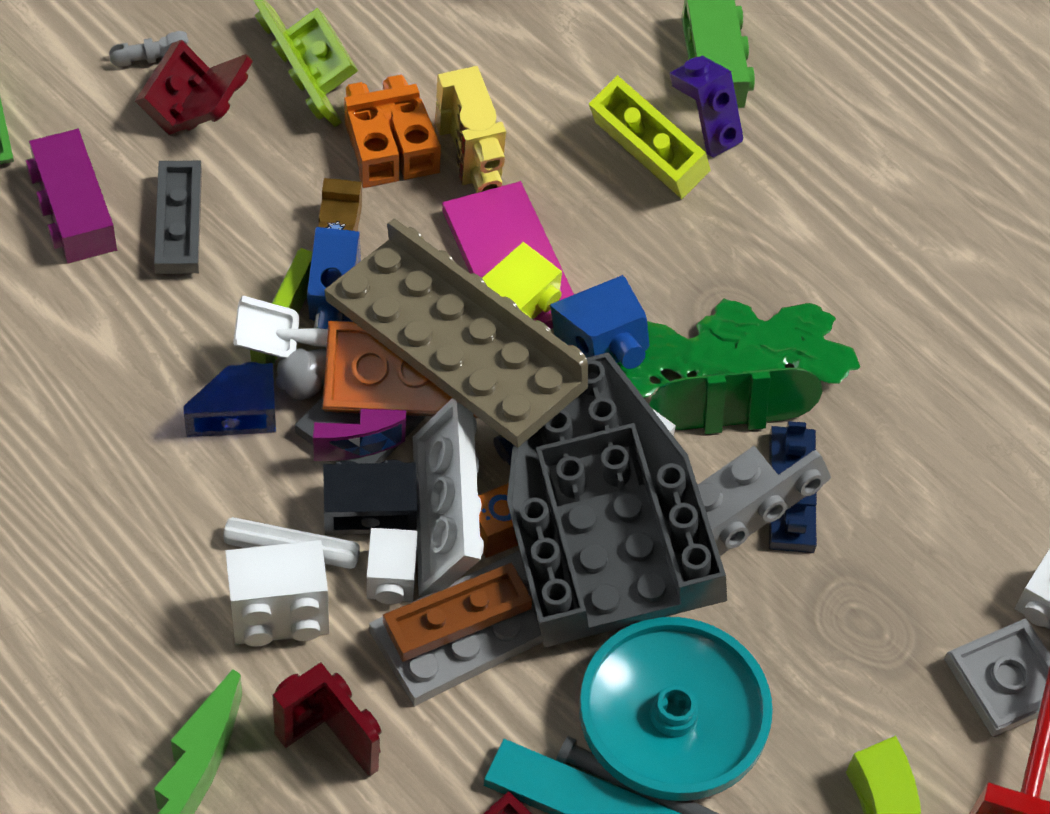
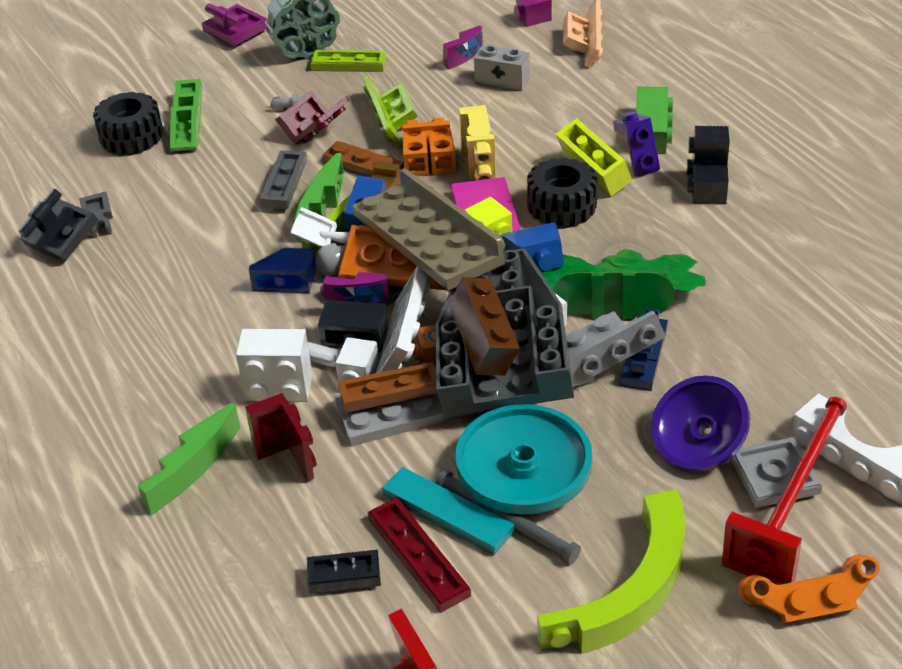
camera: 20 degrees right, 15 degrees down
(71, 196) = (221, 165): magenta brick -> none
(248, 244) = (324, 189): none -> bright green slope
(286, 163) = (357, 159): none -> dark orange plate
(587, 511) = (483, 326): none -> reddish brown brick
(623, 183) = (562, 192): none -> black tyre
(821, 141) = (709, 165): none -> black brick
(875, 598) = (690, 410): none -> dark purple dish

